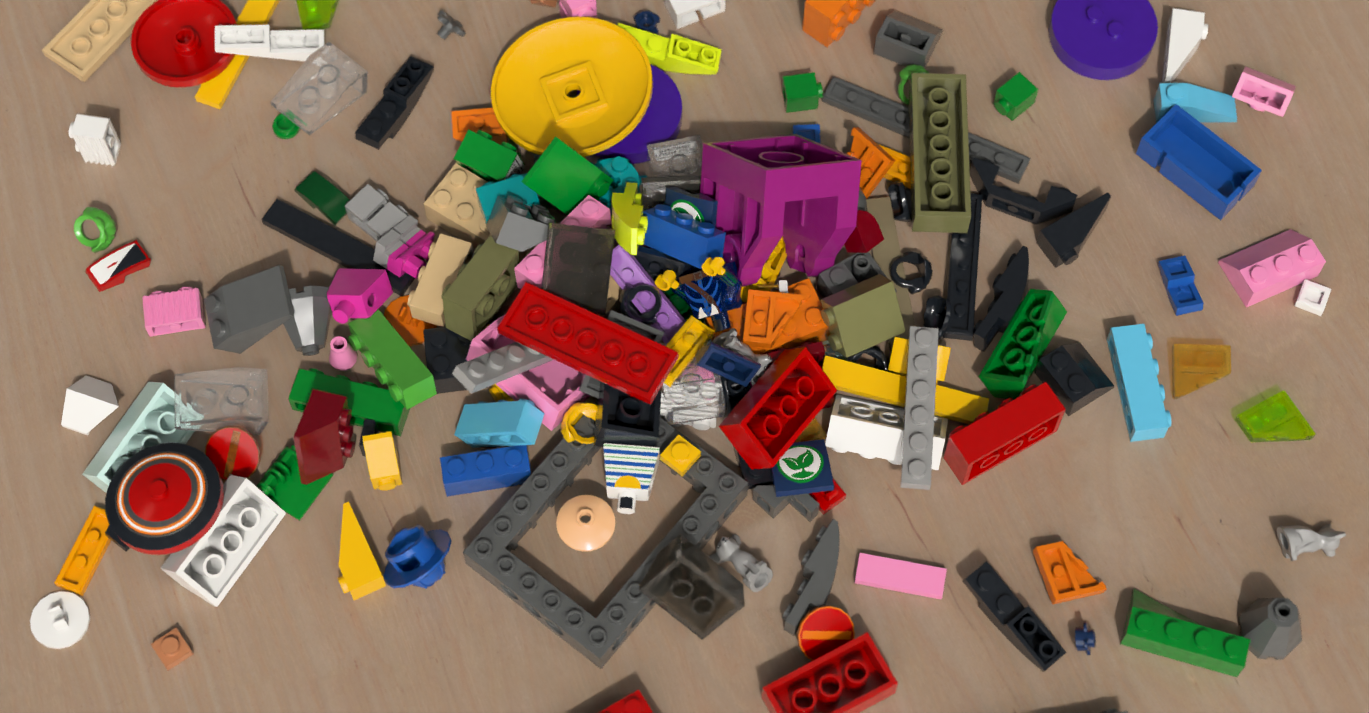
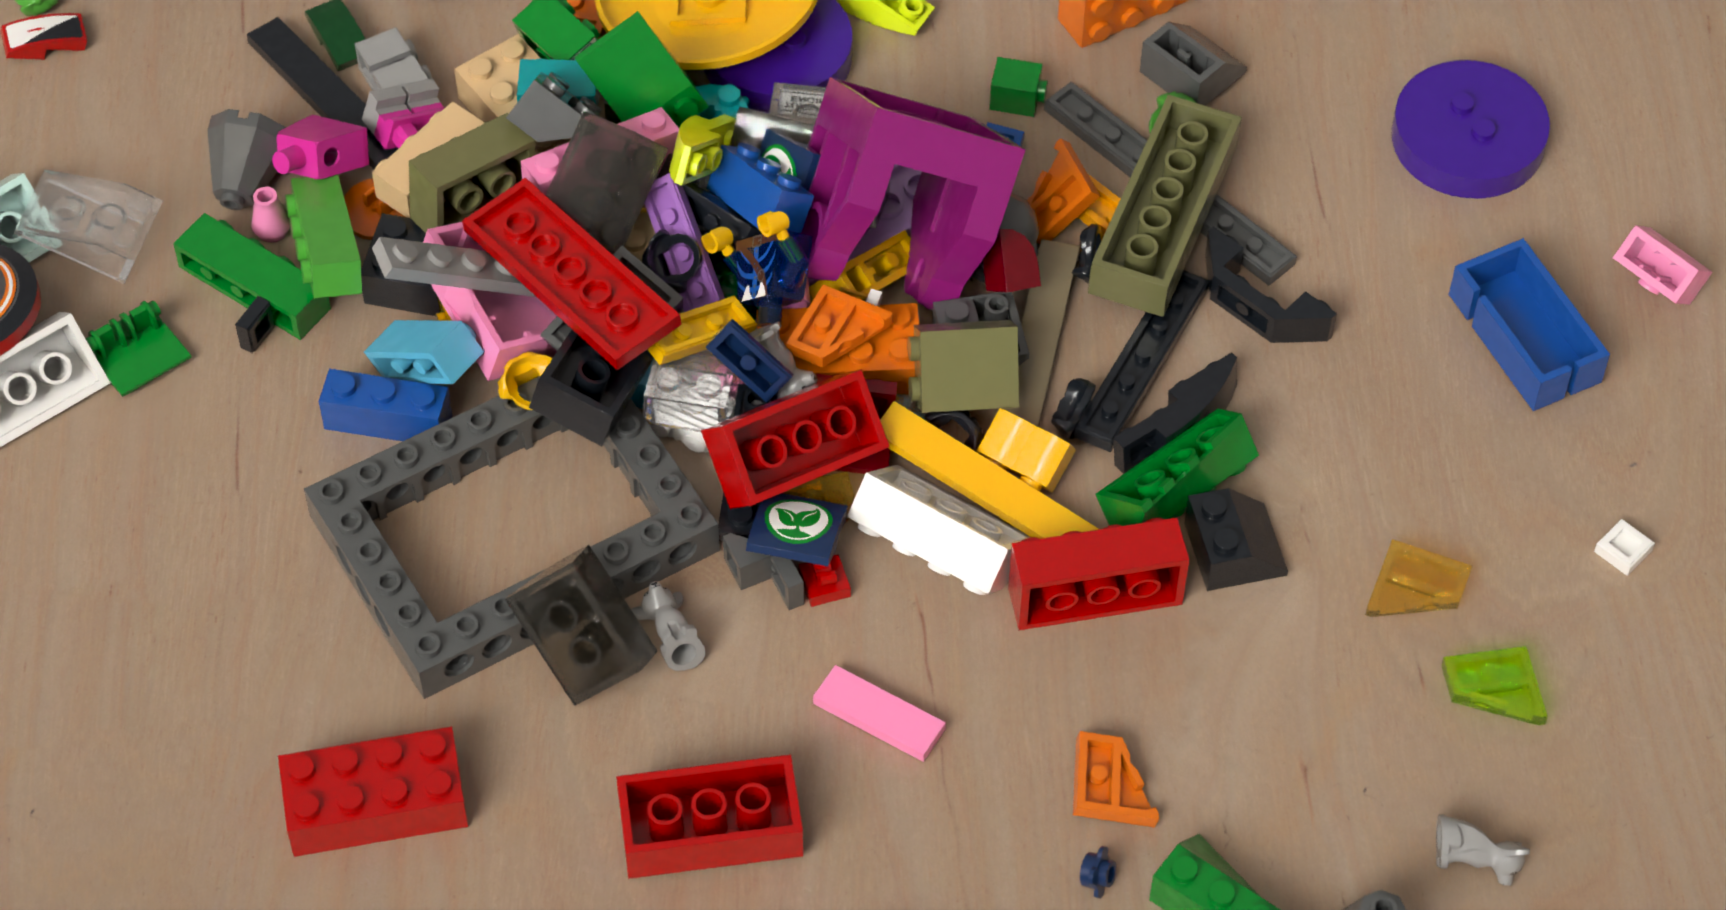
camera: 20 degrees right, 10 degrees down
(173, 311) = (85, 106): bright pink brick -> none
(233, 452) = (75, 285): red piece -> none
(248, 309) = (170, 124): dark grey slope -> none
(323, 436) = (188, 294): dark red slope -> none
(356, 560) = (168, 460): yellow slope -> none
(382, 461) = (257, 351): yellow slope -> none
(416, 557) = (243, 480): blue helmet -> none
(588, 535) = (483, 515): light nougat dish -> none
(630, 473) = (562, 457): torso -> none
(680, 455) = (640, 458): yellow plate -> none
(820, 570) = (771, 671): dark grey slope -> none
(824, 631) = (738, 735): red piece -> none
(919, 408) = (988, 500): light grey plate -> none
(924, 267) = (1067, 361): black piece -> none
(1013, 619) = (1008, 810): black slope -> none
(1015, 96) = (1308, 174): green brick -> none
(1067, 236) = (1310, 362): black slope -> none
(1138, 382) = (1320, 575): medium azure brick -> none
(1180, 286) = (1438, 475): blue slope -> none
(1182, 41) = (1574, 176): white slope -> none
(1199, 102) = (1565, 254): medium azure slope -> none
(1272, 266) = (1581, 491): bright pink slope -> none

